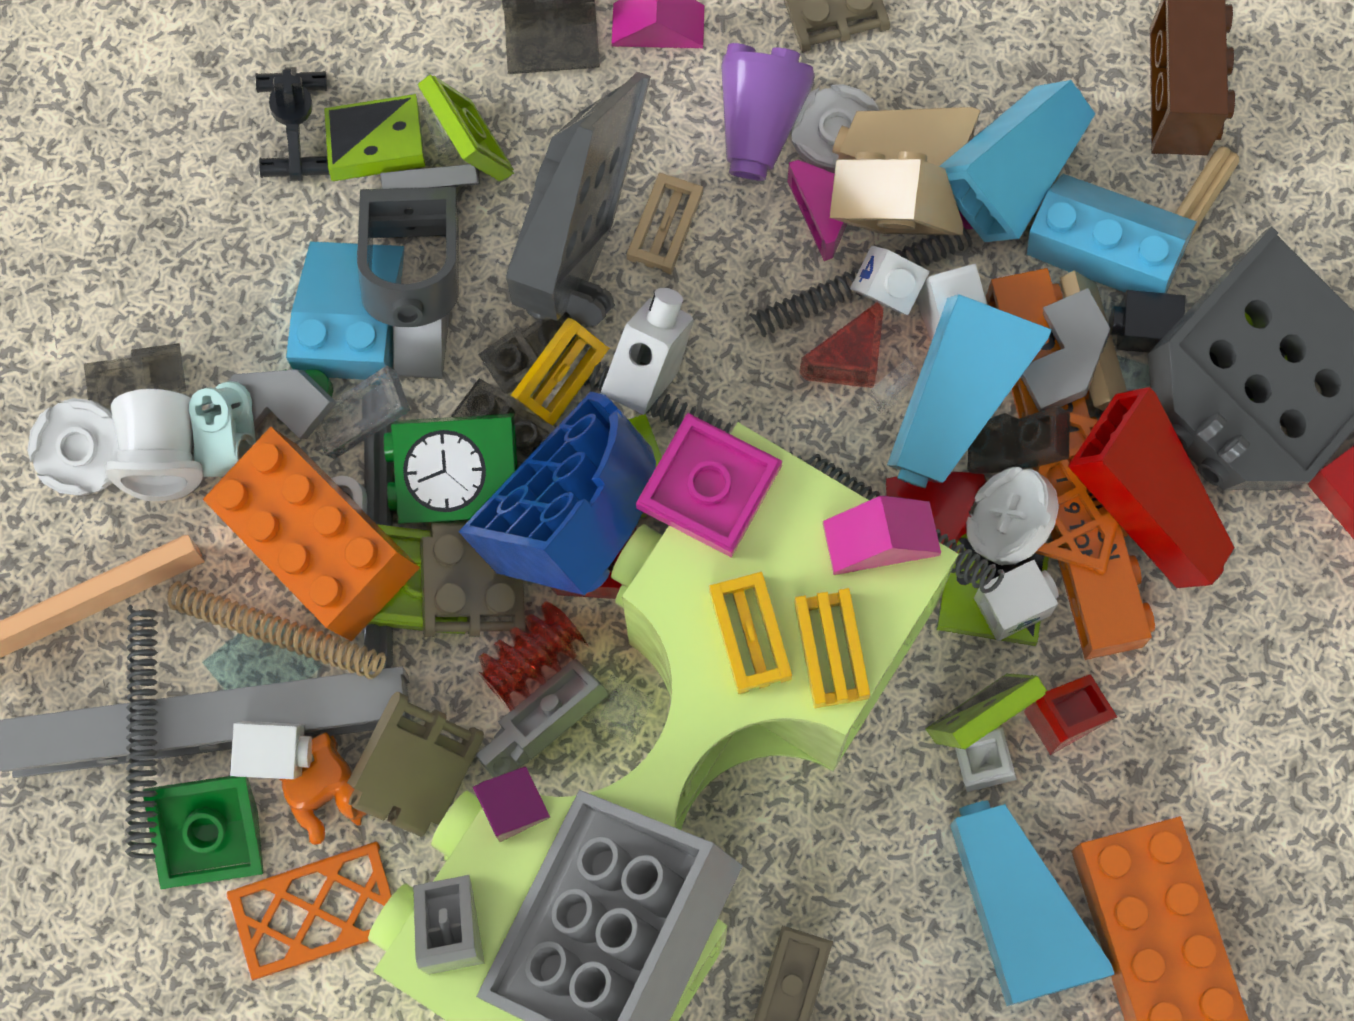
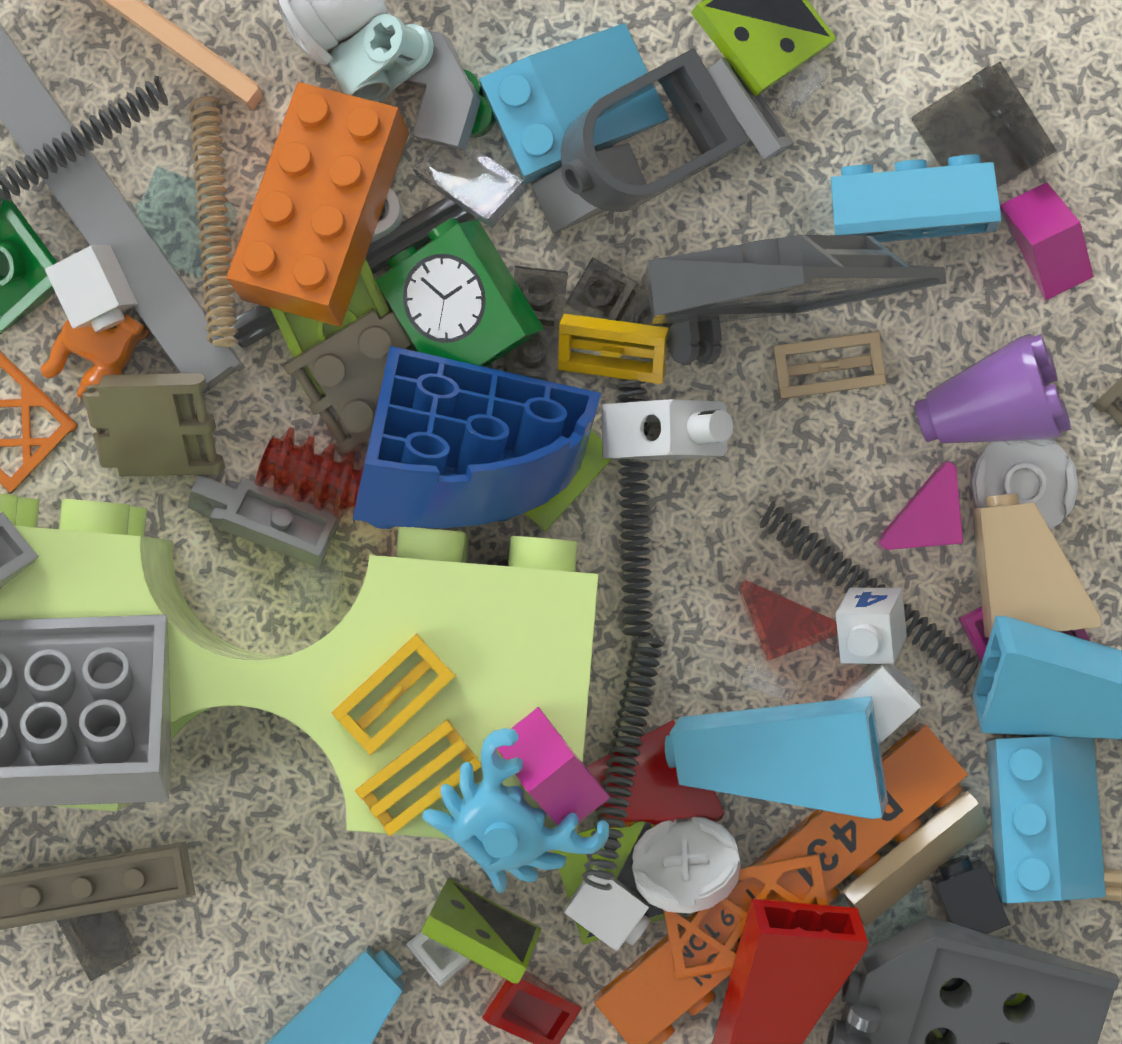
camera: 60 degrees right, 15 degrees up
(466, 128) = (815, 116): lime tile -> none
(511, 803) = (119, 560): magenta slope -> none
(585, 71) = (917, 200): none -> medium azure slope
(709, 485) = (518, 580): dark pink tile -> none
(895, 195) = (954, 589): tan slope -> none
(907, 596) = (500, 826): none -> medium azure animal
(1021, 442) = (766, 840): clear smoke slope -> none
(1082, 339) = (904, 846): light grey tile -> none

